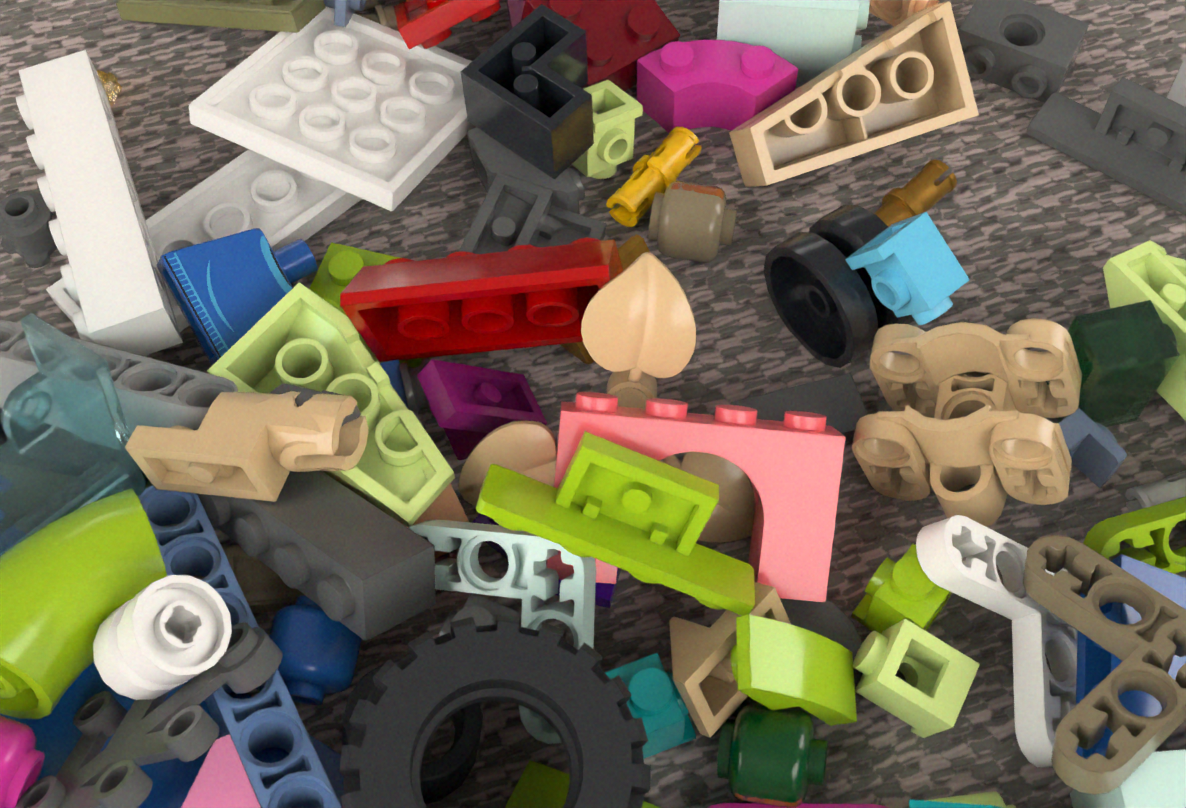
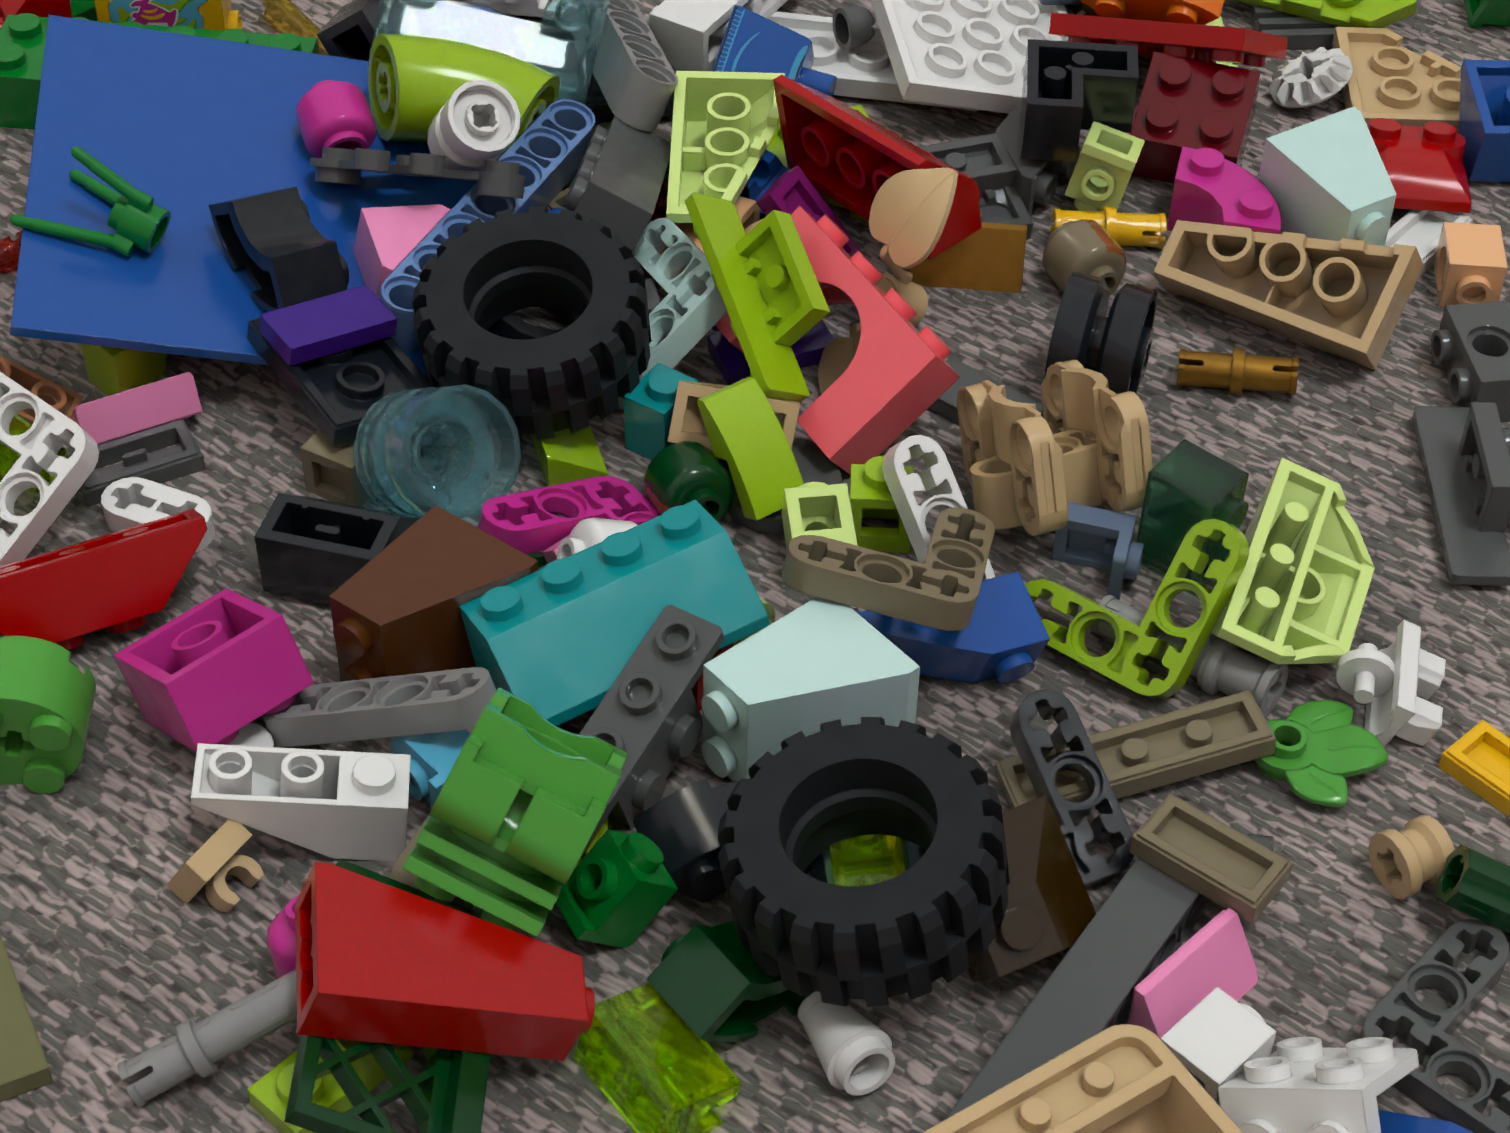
camera: 50 degrees right, 15 degrees down
(244, 180) = (853, 26): none -> dark grey hinge
(253, 443) = (641, 106): tan plate -> none
(911, 269) = (1113, 322): medium azure brick -> none

